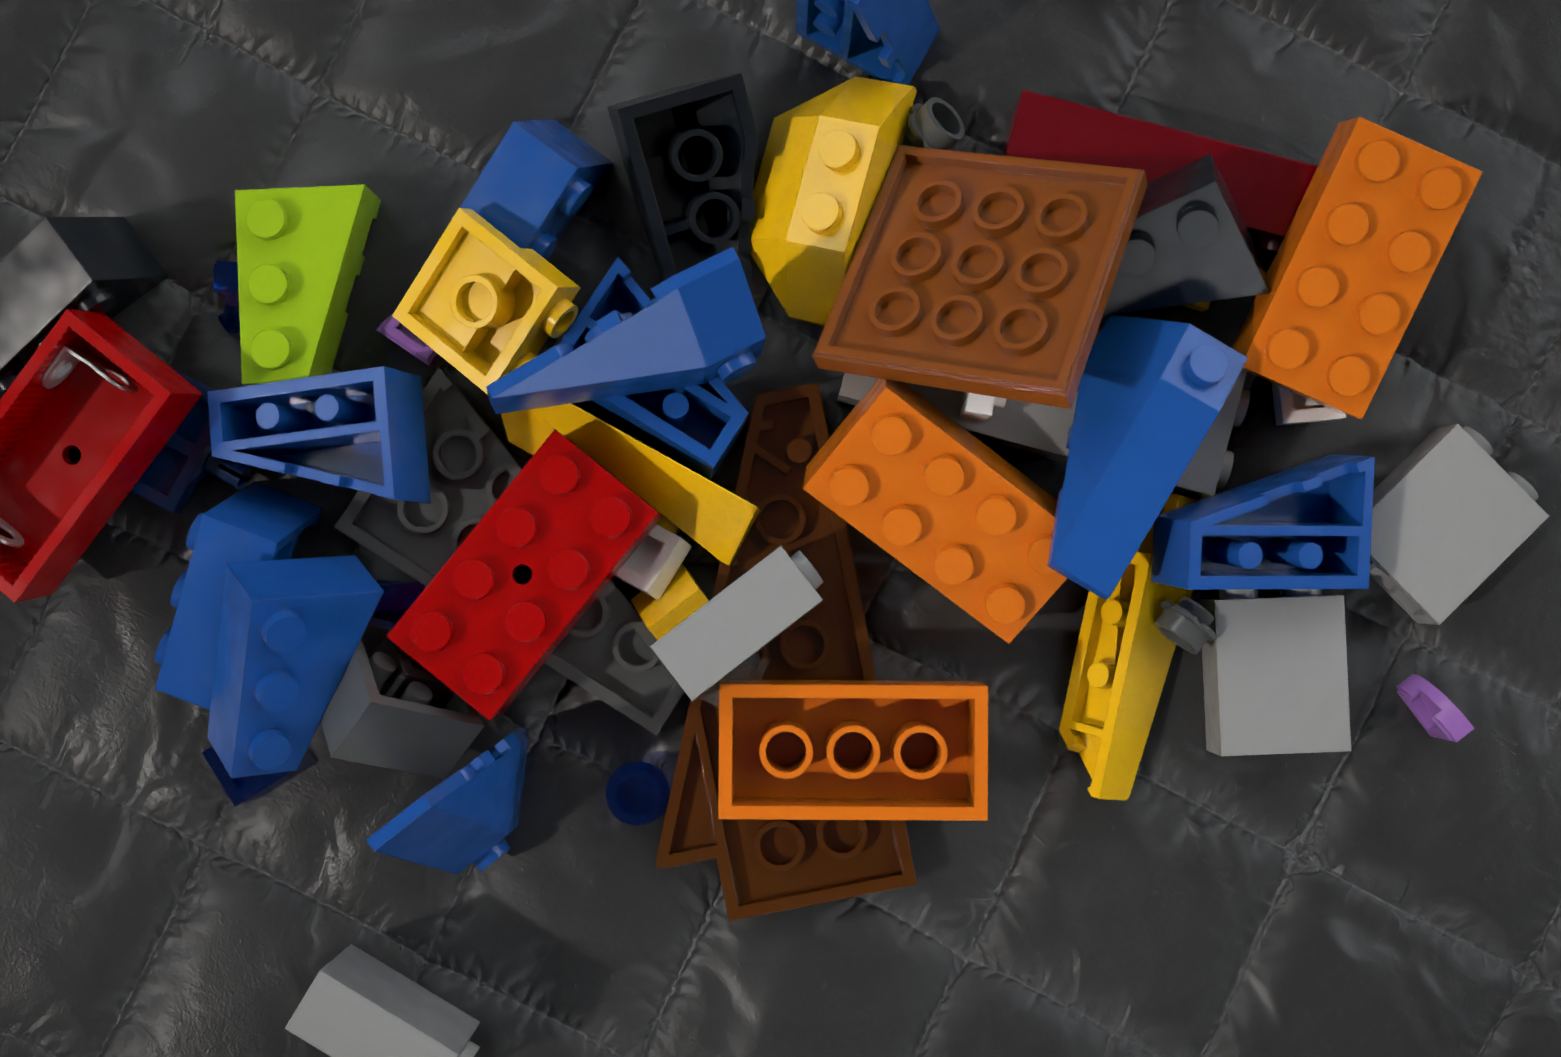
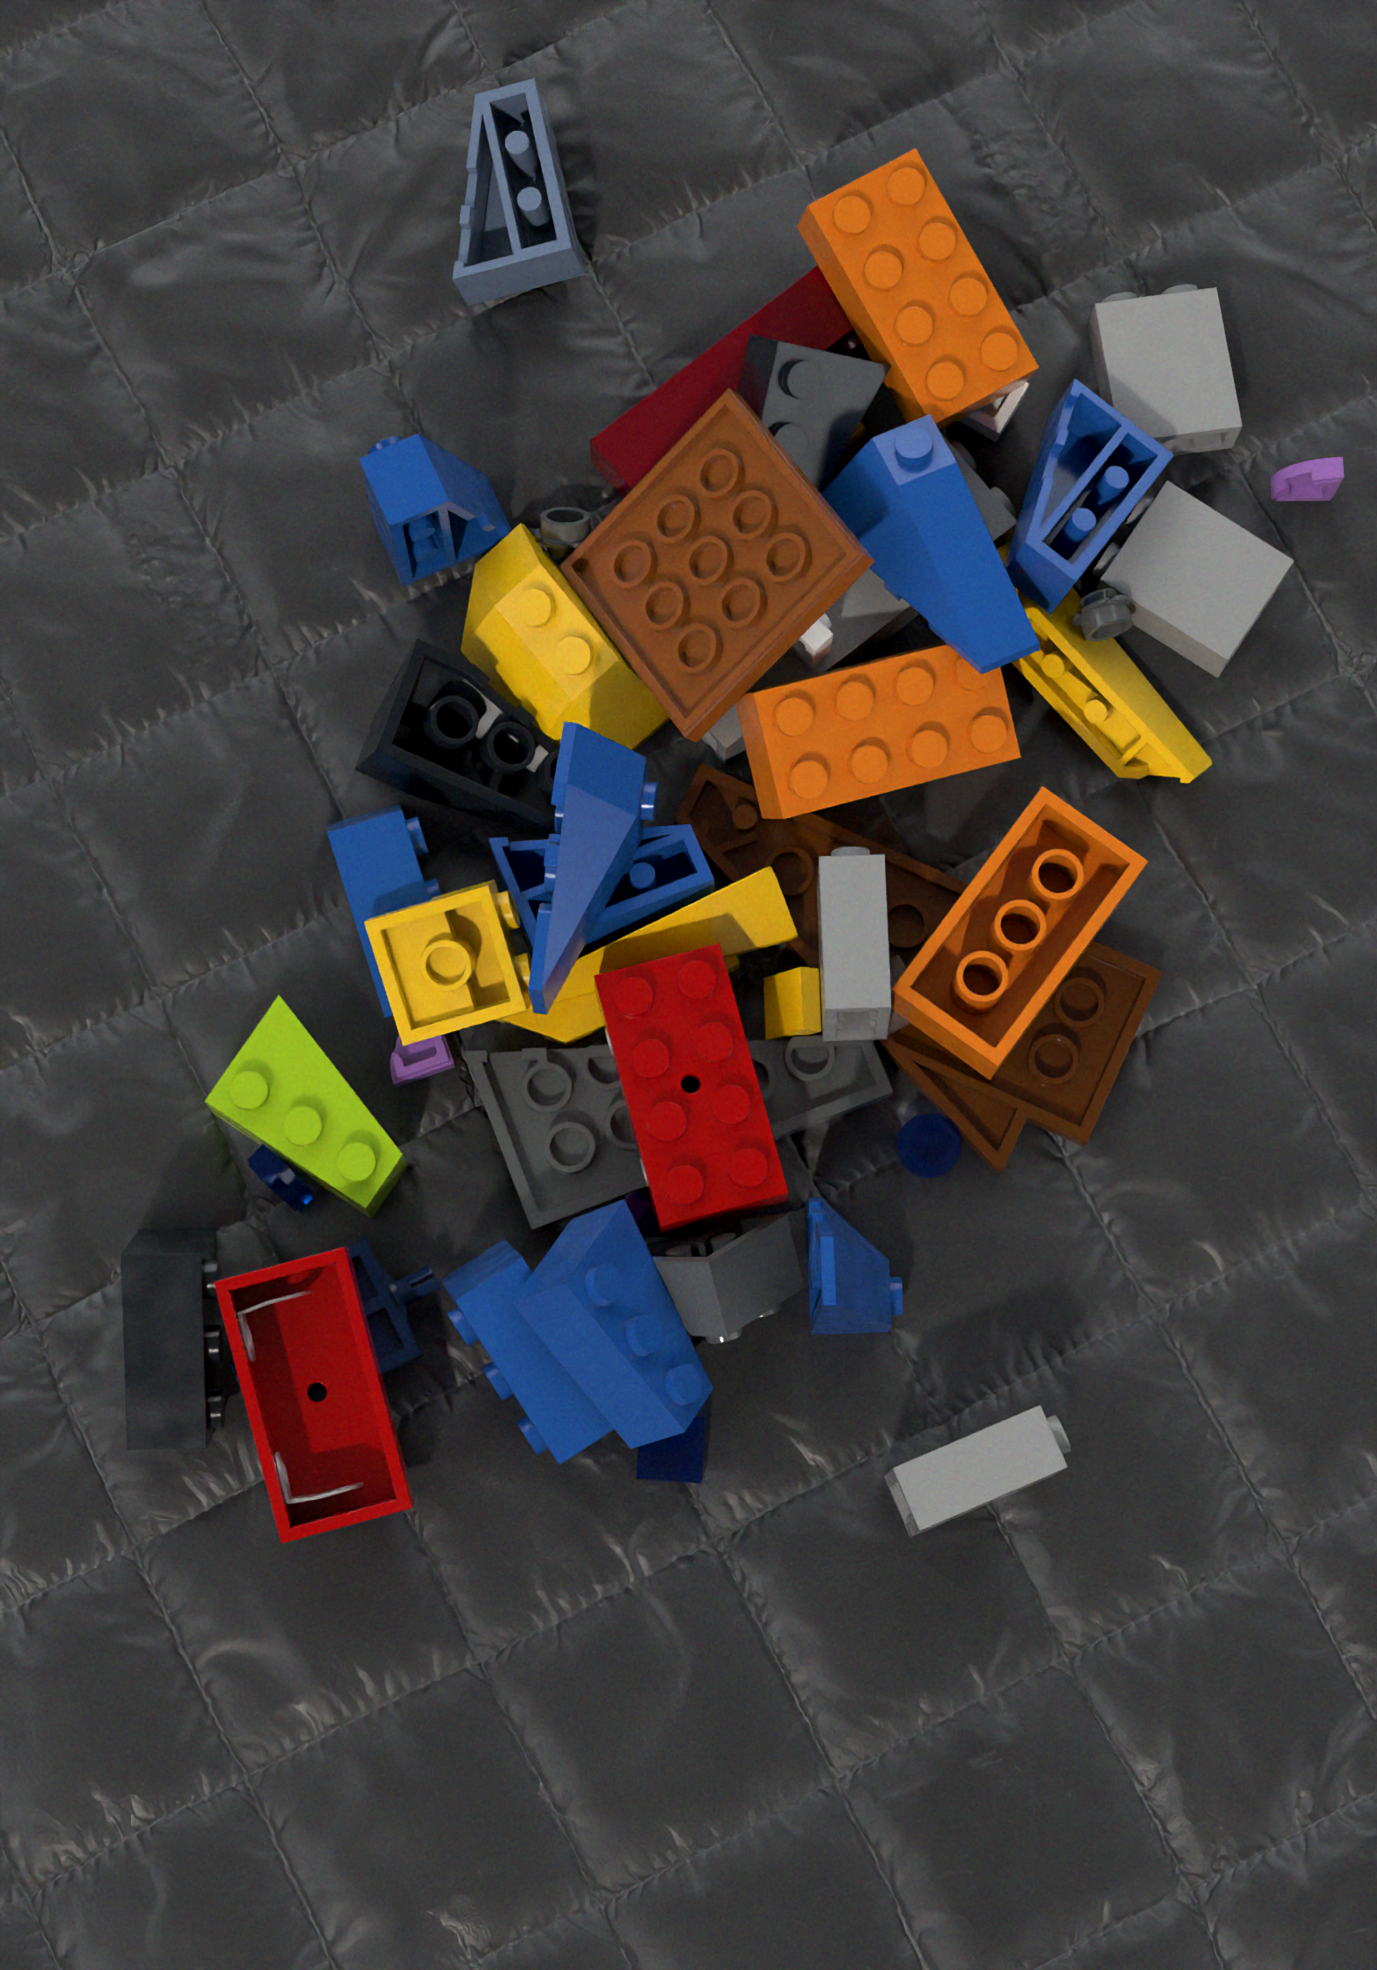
camera: 55 degrees left, 10 degrees down
(332, 428) = (454, 1166): blue wedge -> none
(655, 562) = (753, 992): white plate -> none

